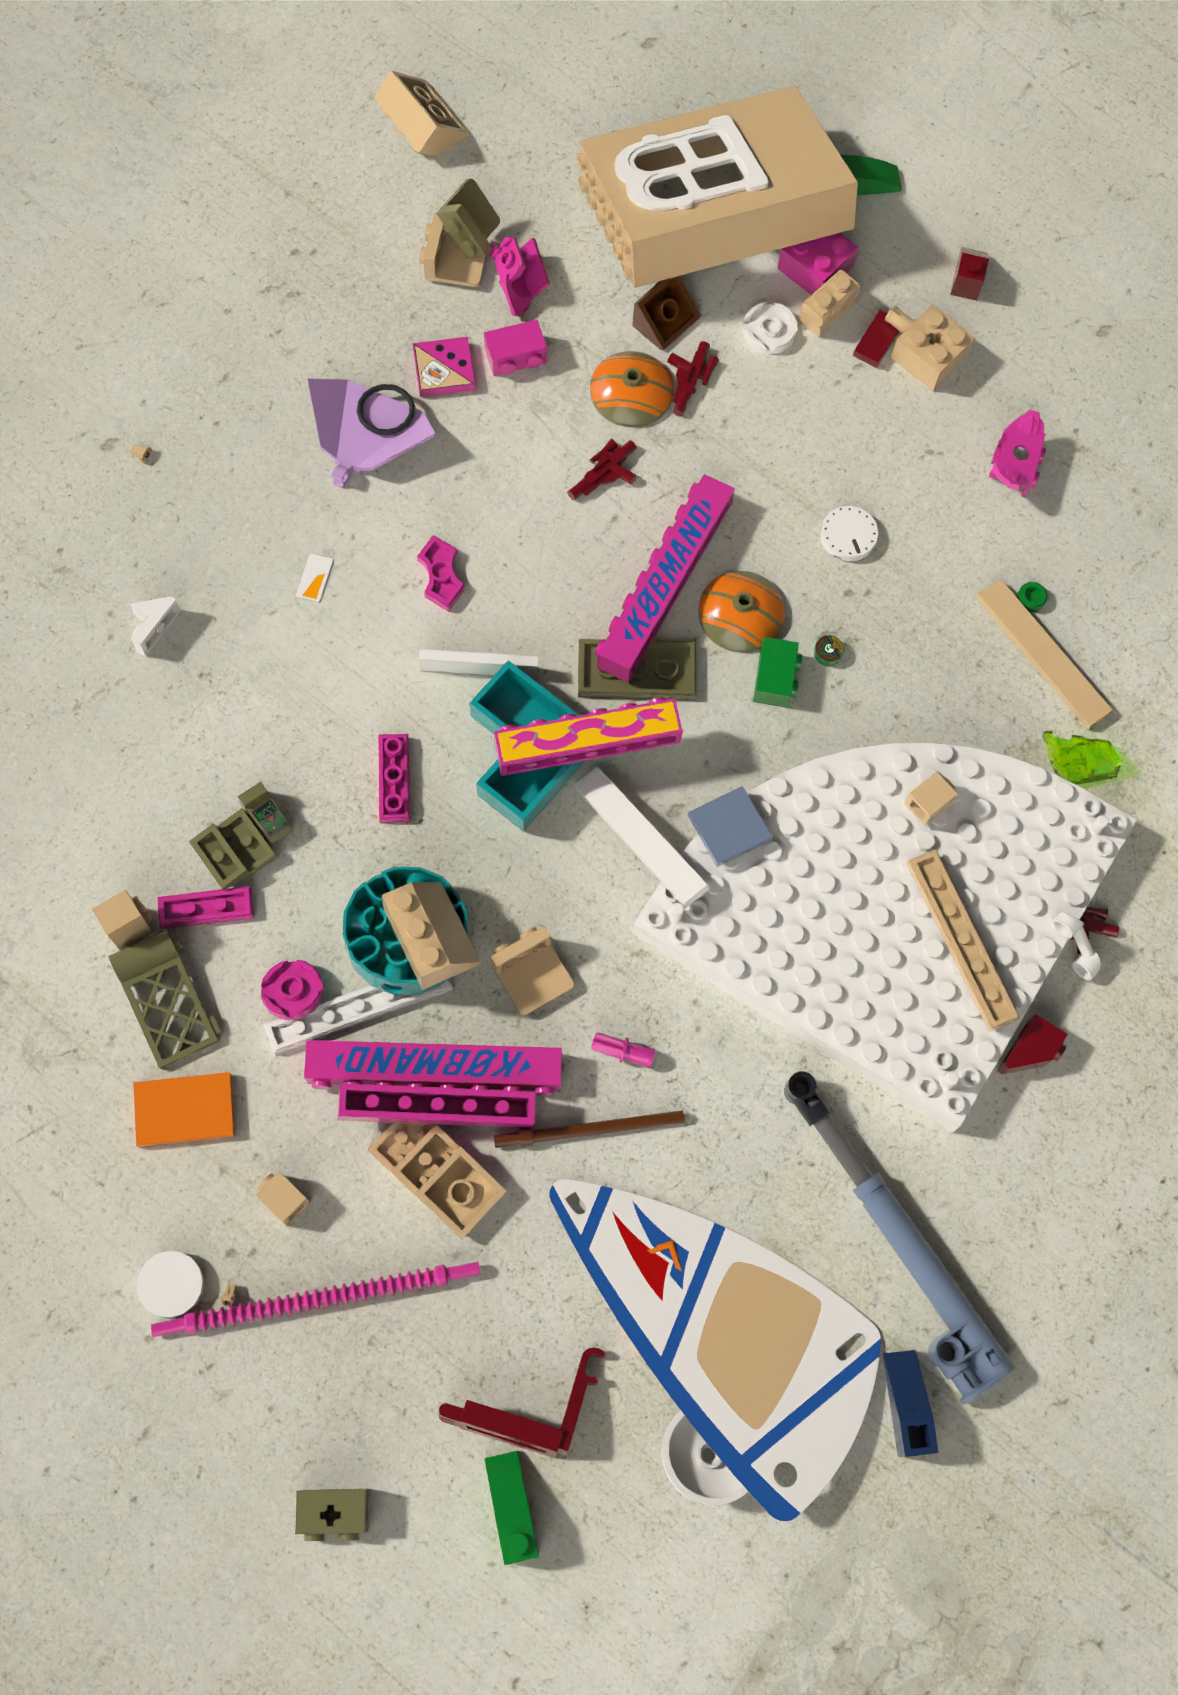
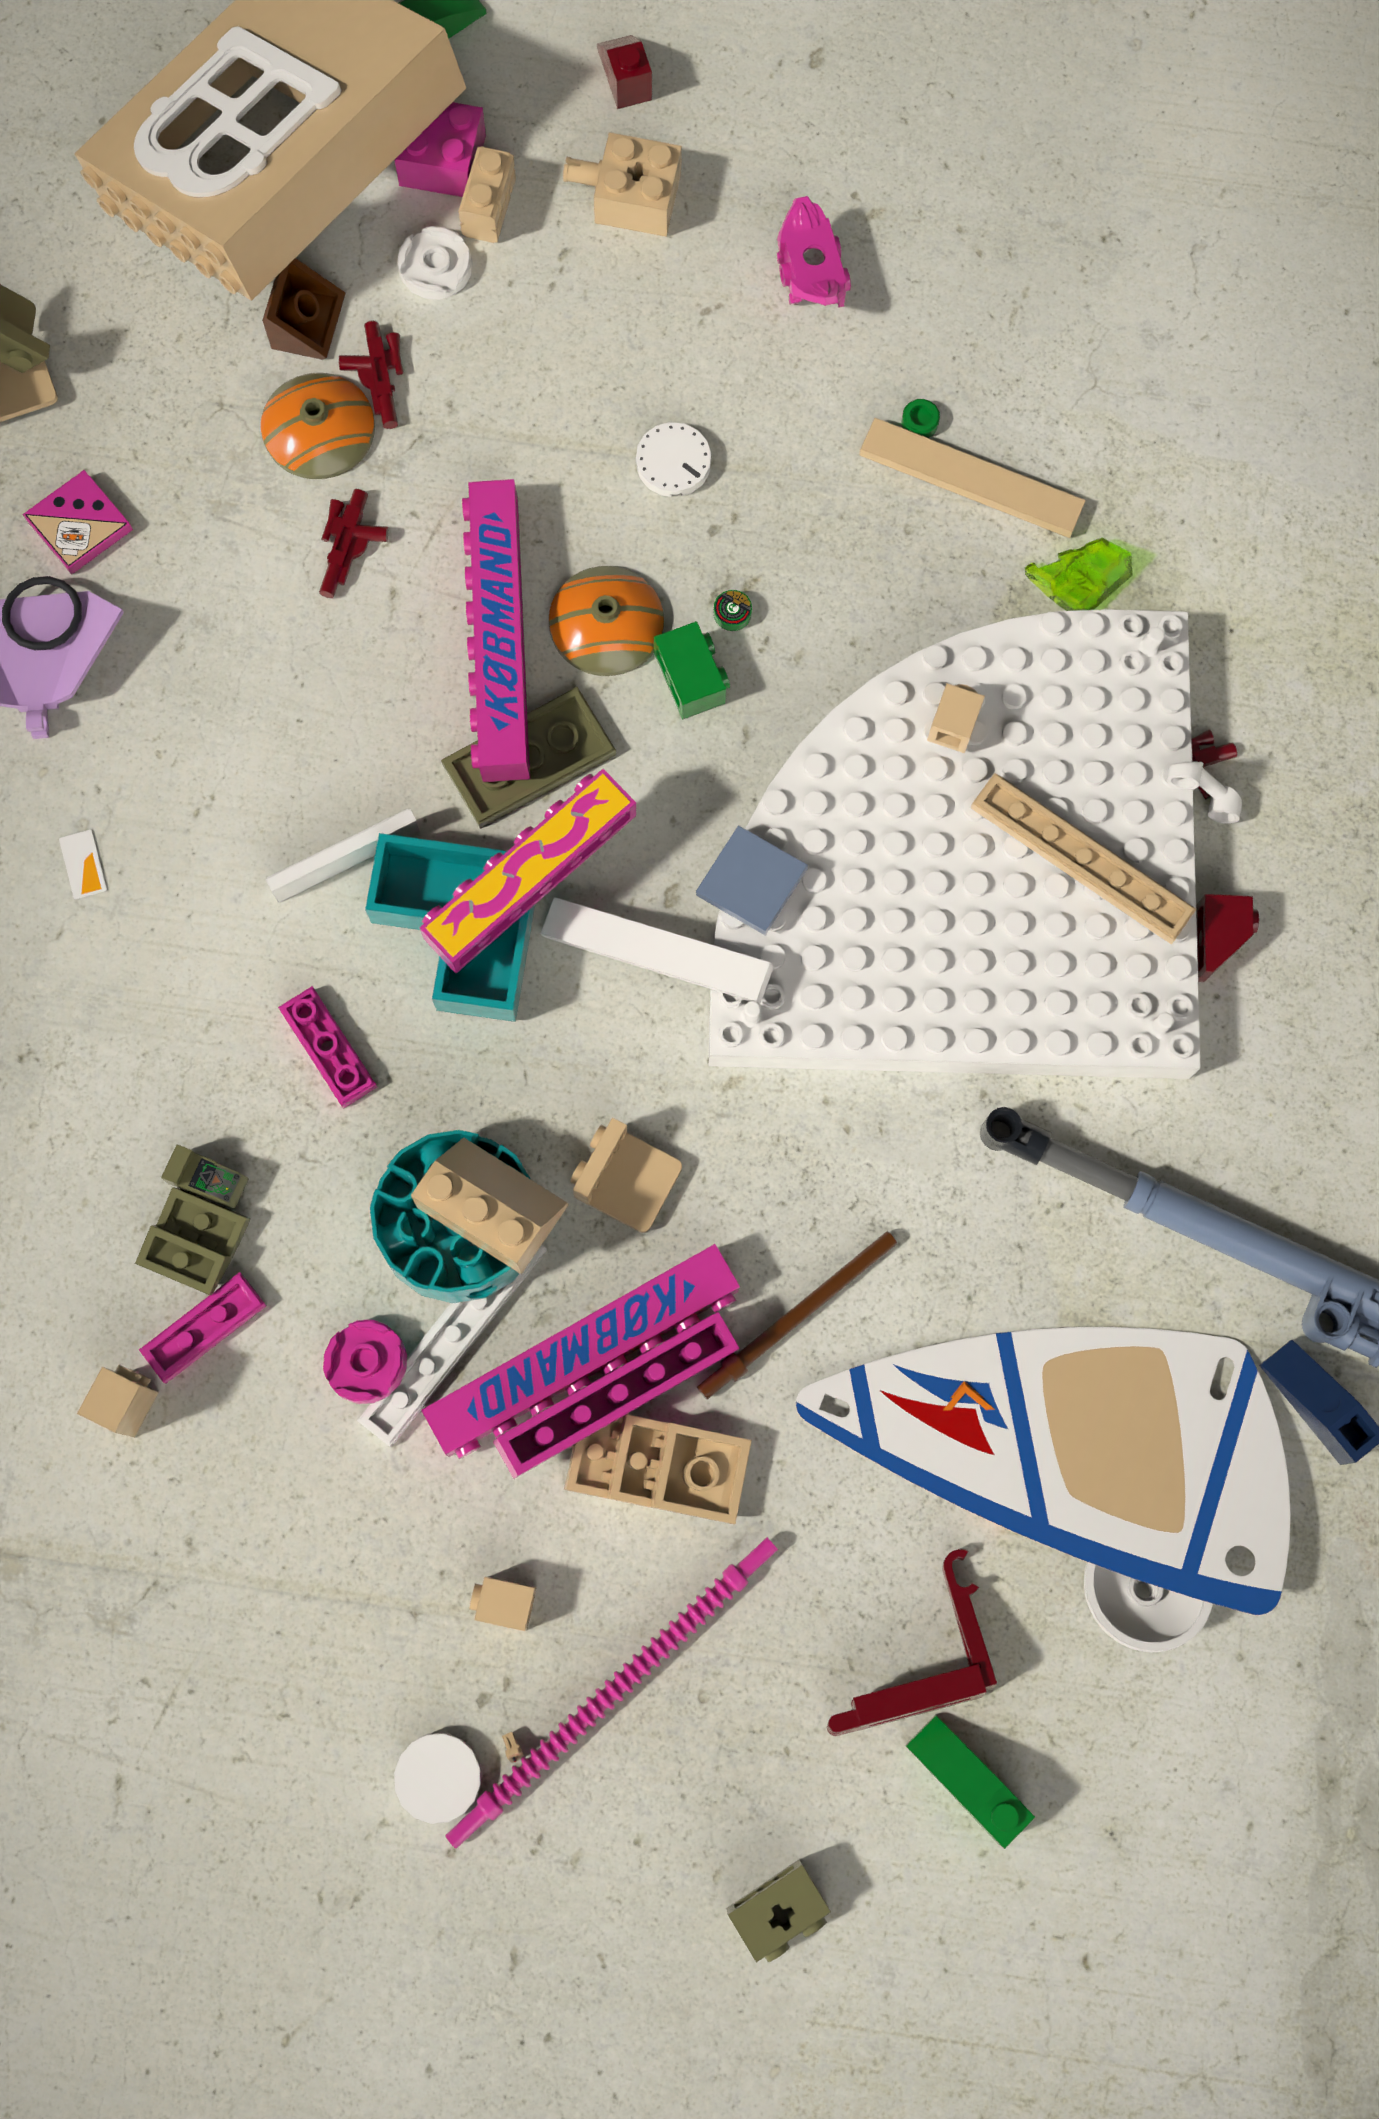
camera: 30 degrees left, 5 degrees up
(153, 958) = (174, 1430): olive piece -> none
(183, 1109) = (326, 1573): orange tile -> none
(443, 585) = (244, 788): dark pink tile -> none
(515, 347) = (150, 451): dark pink brick -> none
(520, 272) = (99, 355): dark pink piece -> none
(623, 1049) = (782, 1203): dark pink axle -> none
(876, 340) = (567, 210): dark red tile -> none

